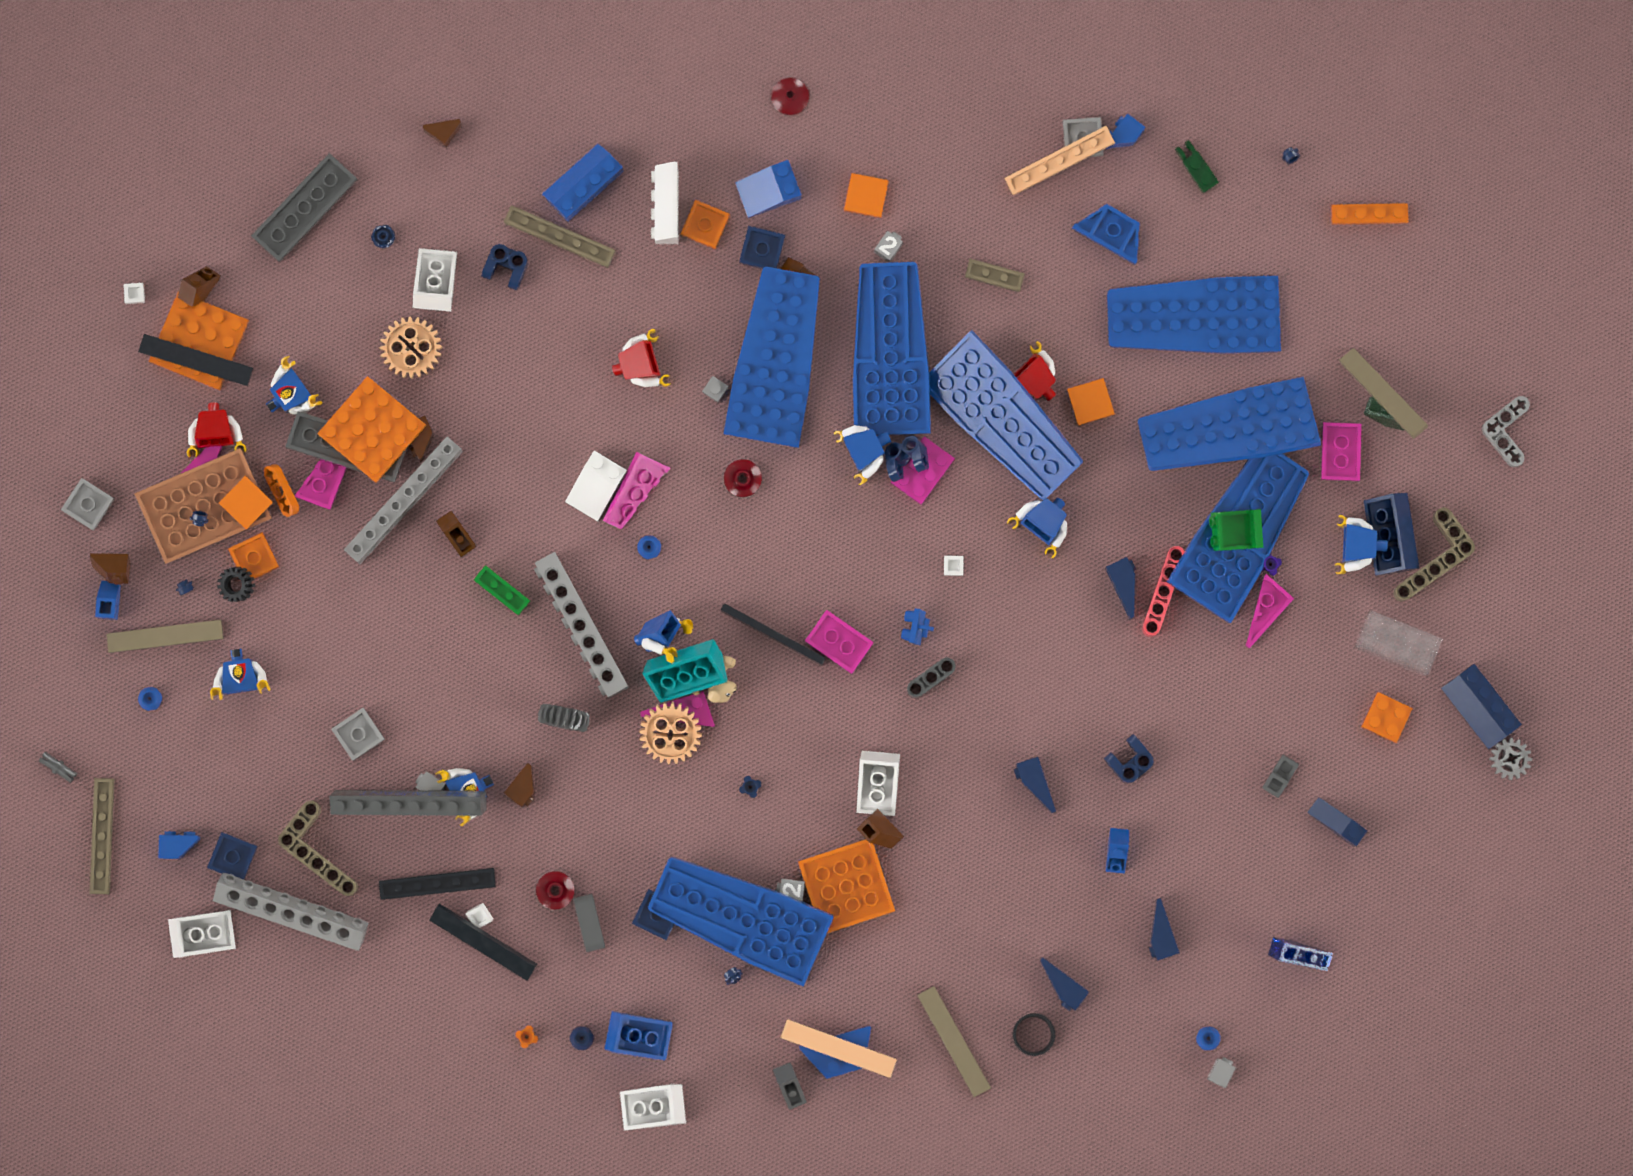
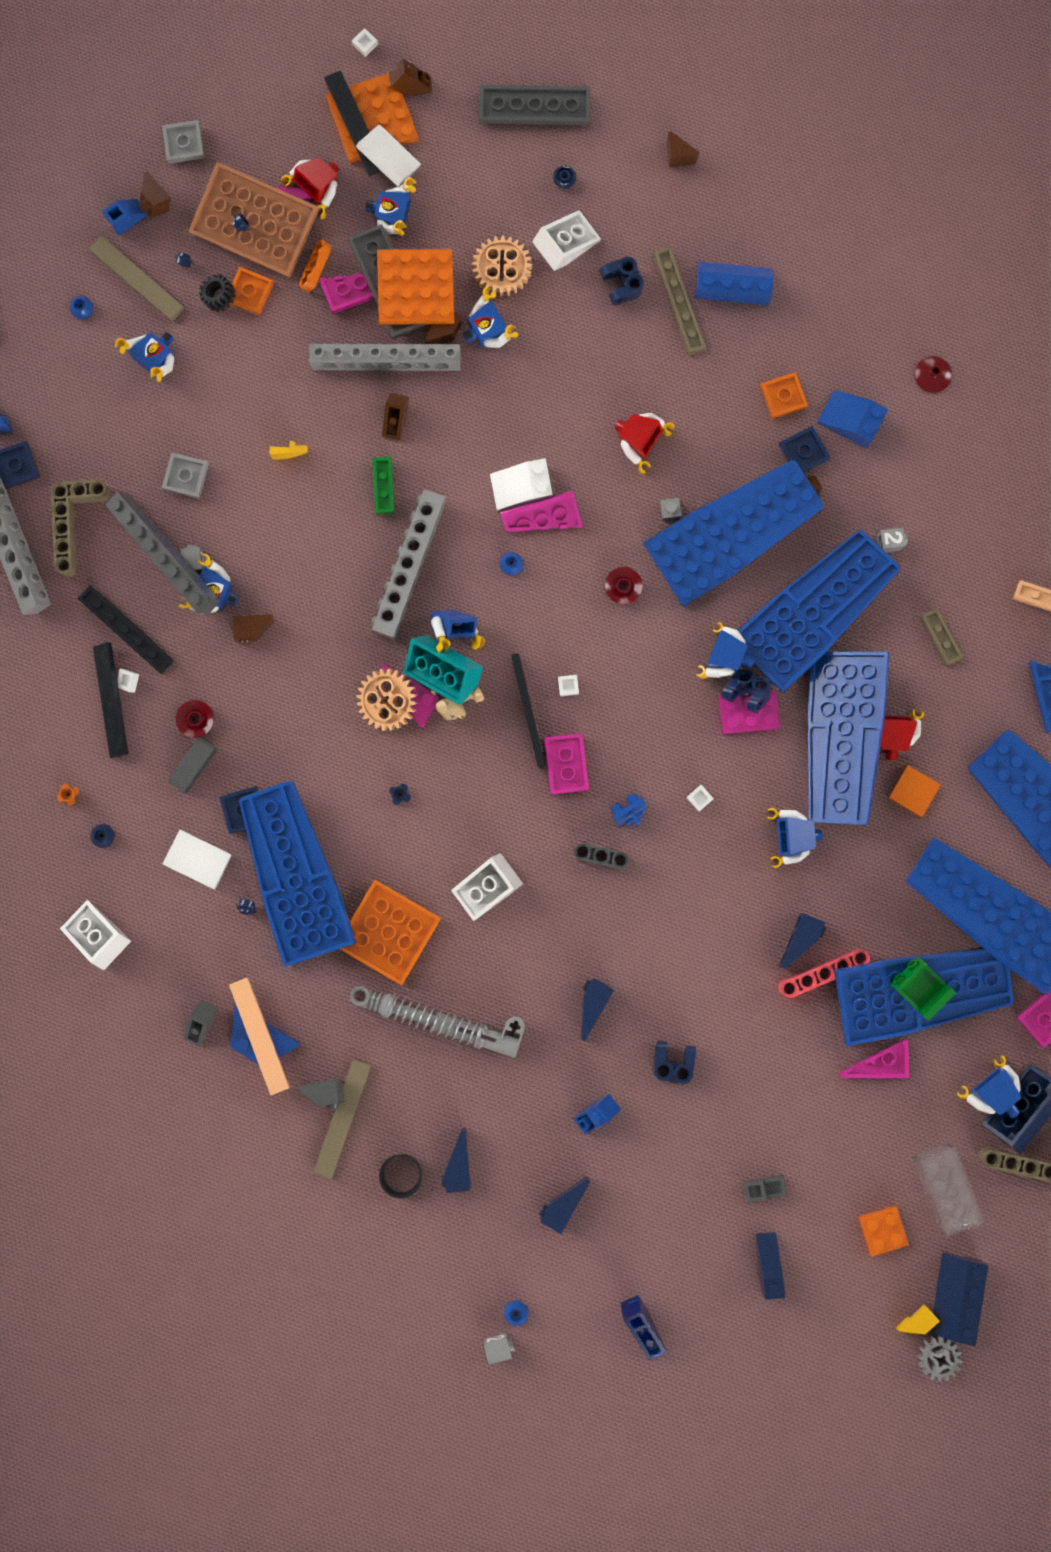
camera: 45 degrees right, 0 degrees up
(245, 502) = (282, 245): orange tile -> none
(247, 357) = (388, 155): none -> white tile
(413, 632) = (287, 452): none -> yellow slope
(448, 400) = (487, 324): none -> torso
(563, 717) = (327, 611): dark grey gear -> none
(638, 1036) = (139, 876): blue slope -> none
(663, 982) = (197, 859): none -> white tile
(666, 203) = (774, 352): white slope -> none
(781, 587) = (568, 685): none -> white plate
(791, 888) = (350, 893): light grey brick -> none
(866, 195) = (912, 491): orange tile -> none
(880, 830) = (452, 920): reddish brown slope -> none
(923, 1036) = (324, 1093): none -> dark grey slope
(951, 904) = (442, 1023): none -> light grey piece
(1275, 563) = (918, 1041): dark purple plate -> none
(1472, 750) = (920, 1322): none -> yellow slope

